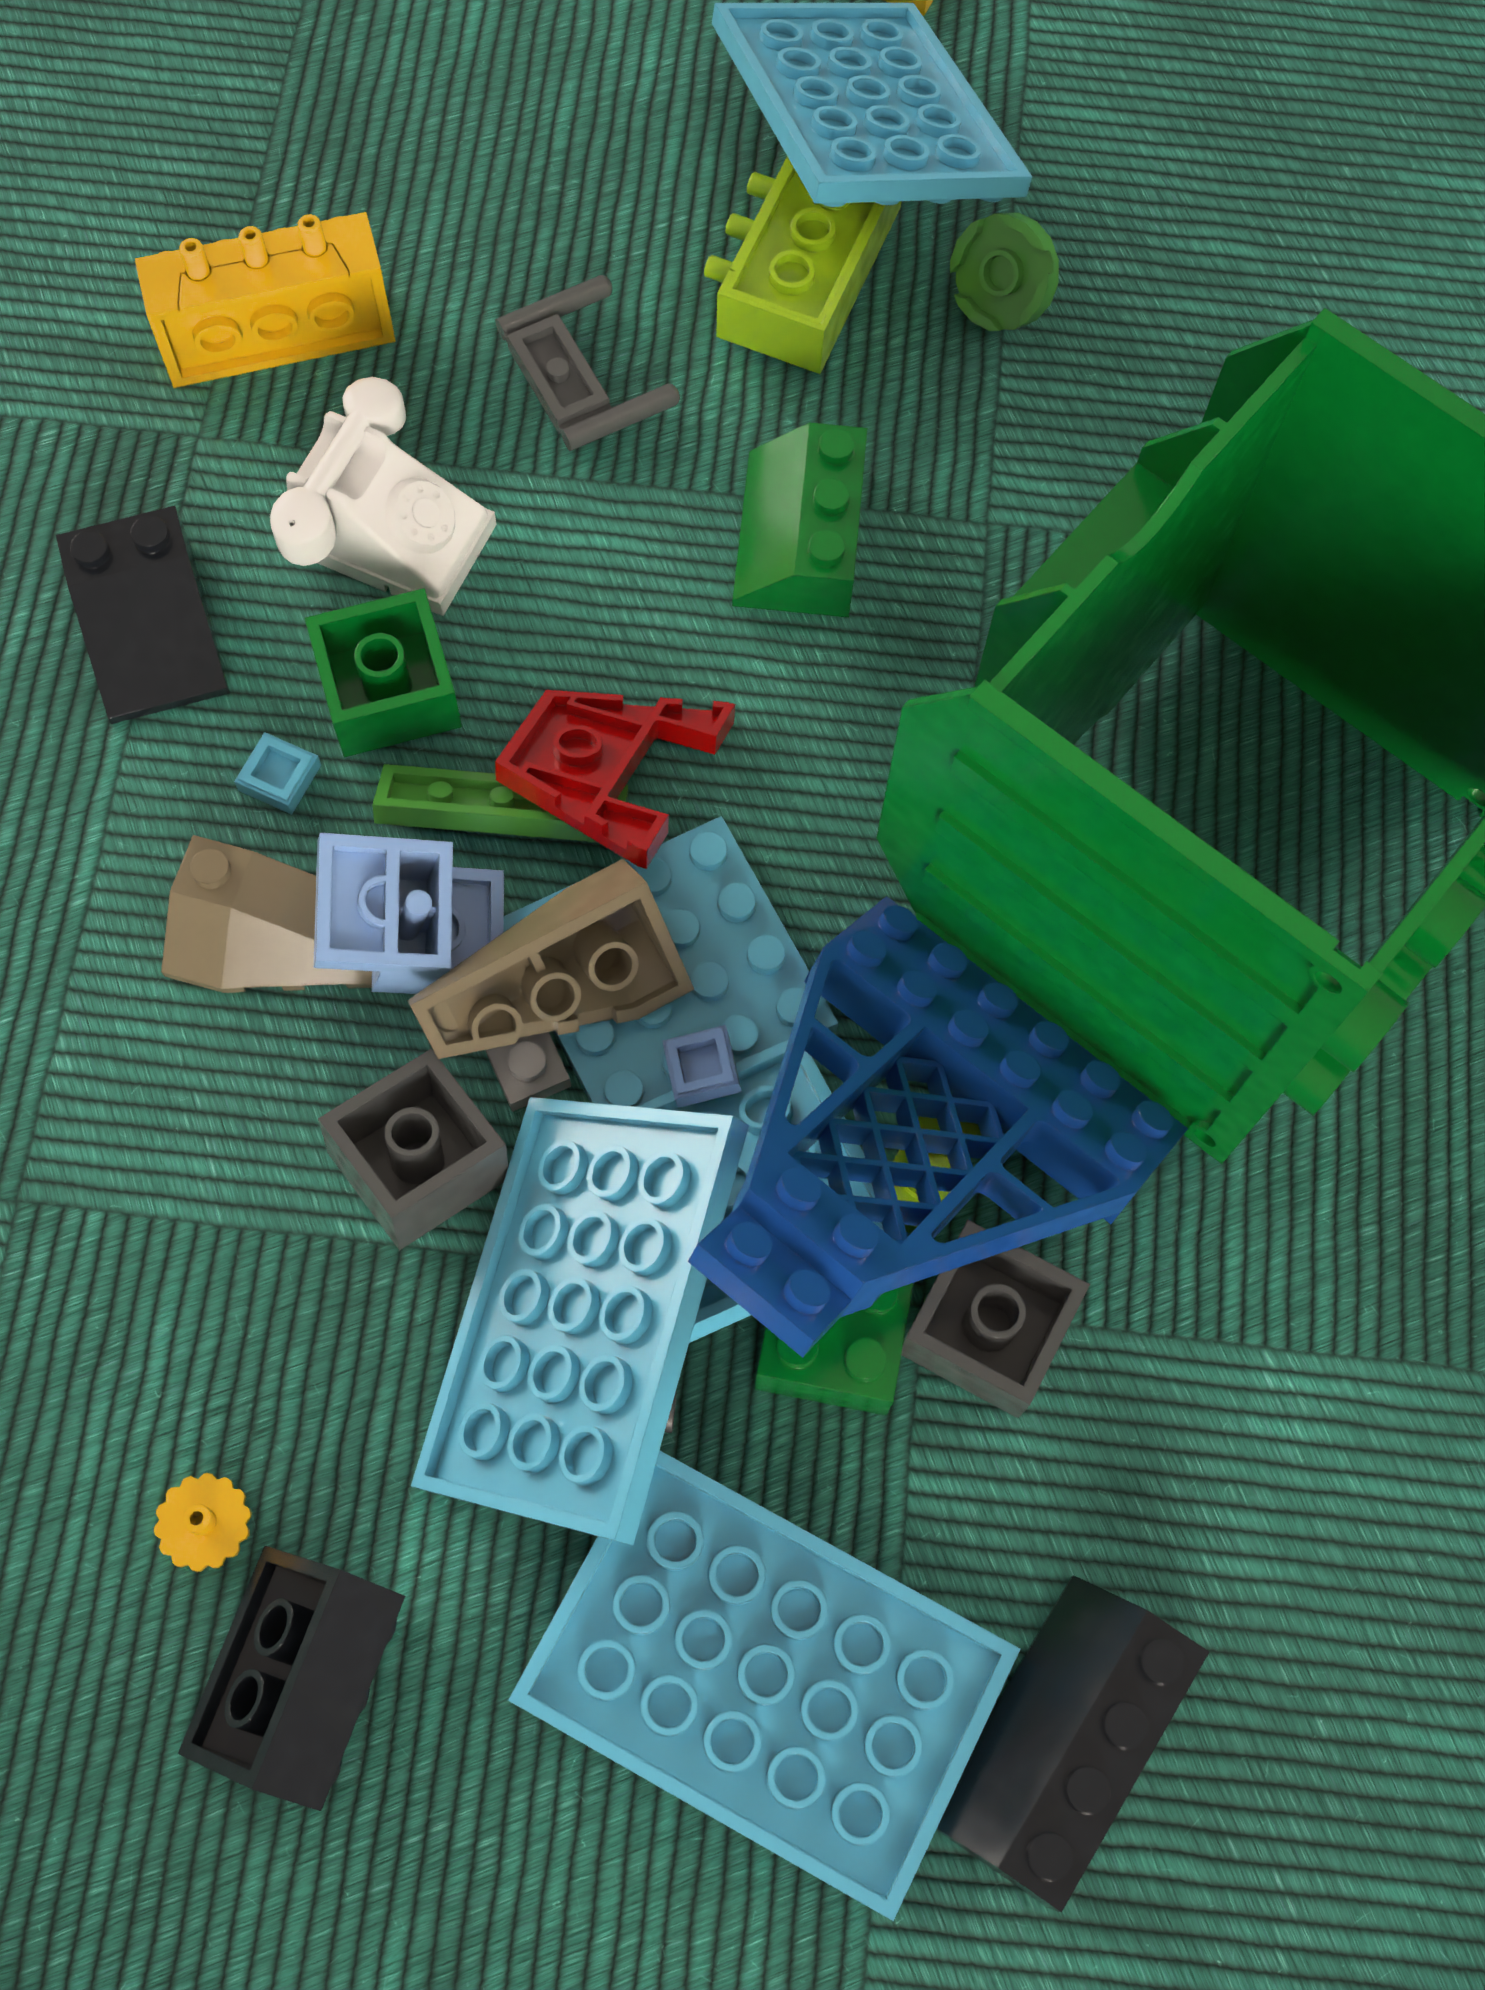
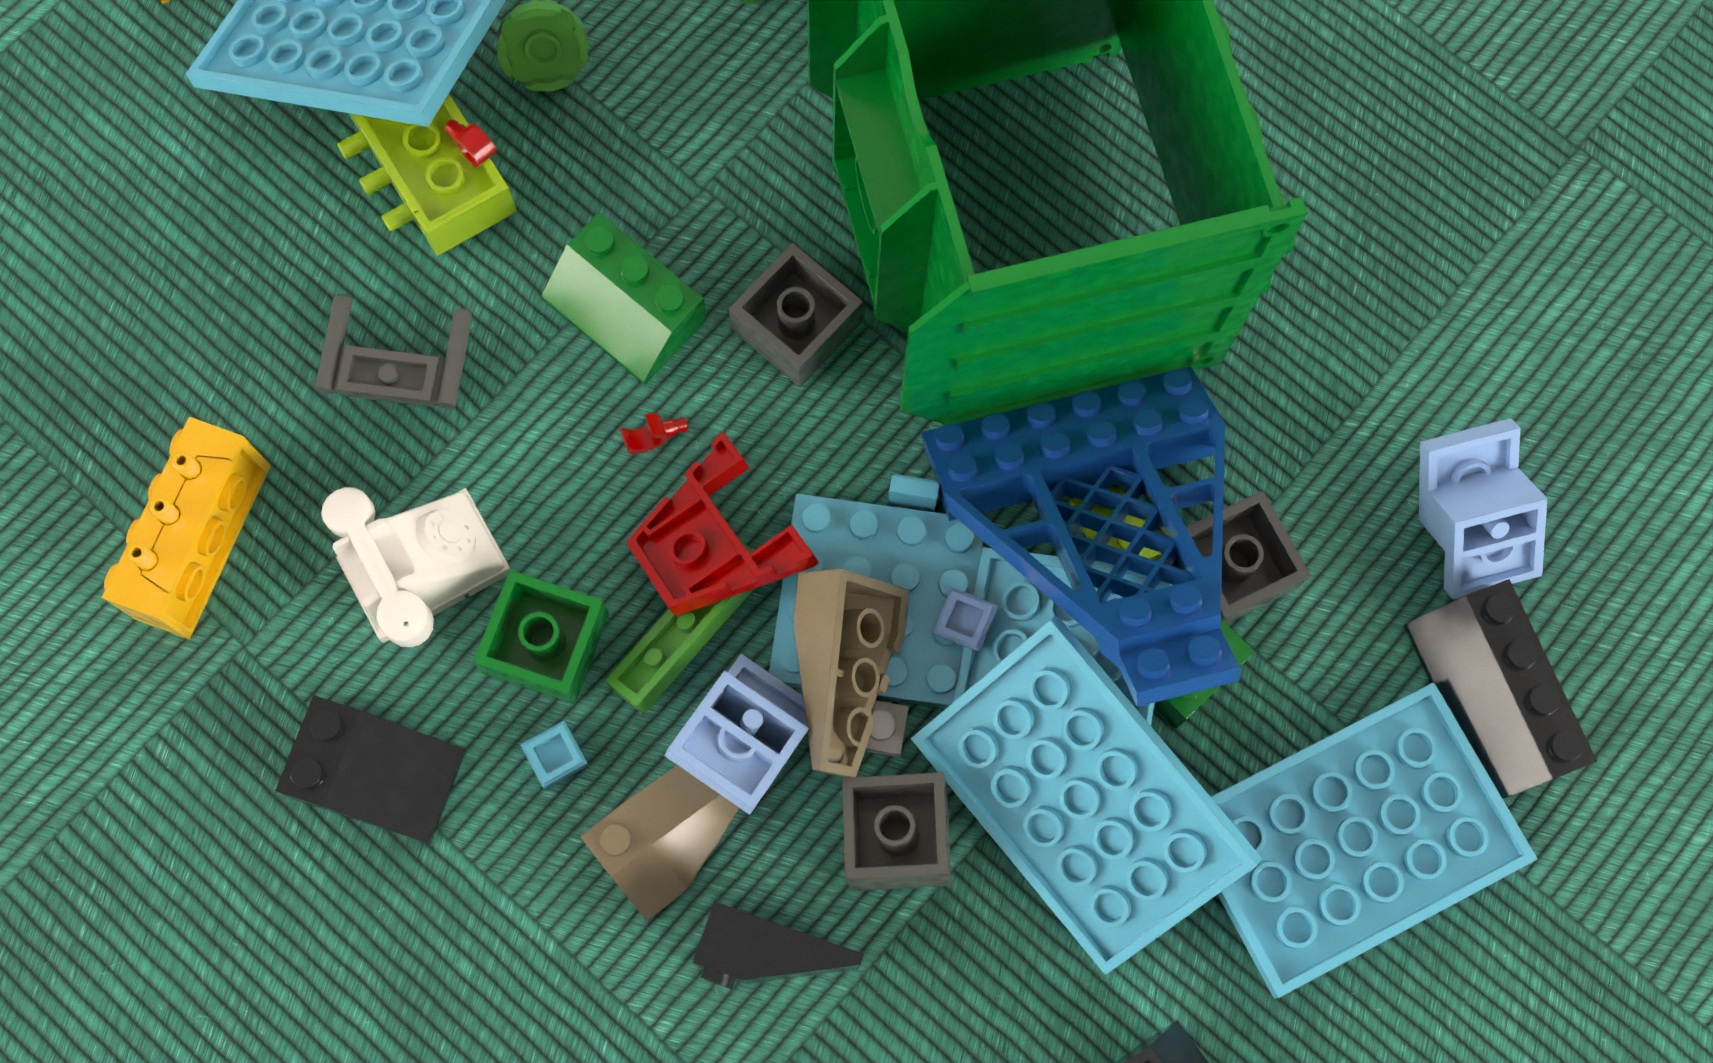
camera: 55 degrees left, 5 degrees up
(185, 1073) = (759, 950): none -> black slope
(682, 641) = (653, 434): none -> red piece
(807, 924) = (913, 492): none -> medium azure tile
(838, 264) = (471, 142): none -> red piece
(900, 660) = (796, 314): none -> dark grey brick
(1277, 1566) = (1481, 508): none -> light blue bracket

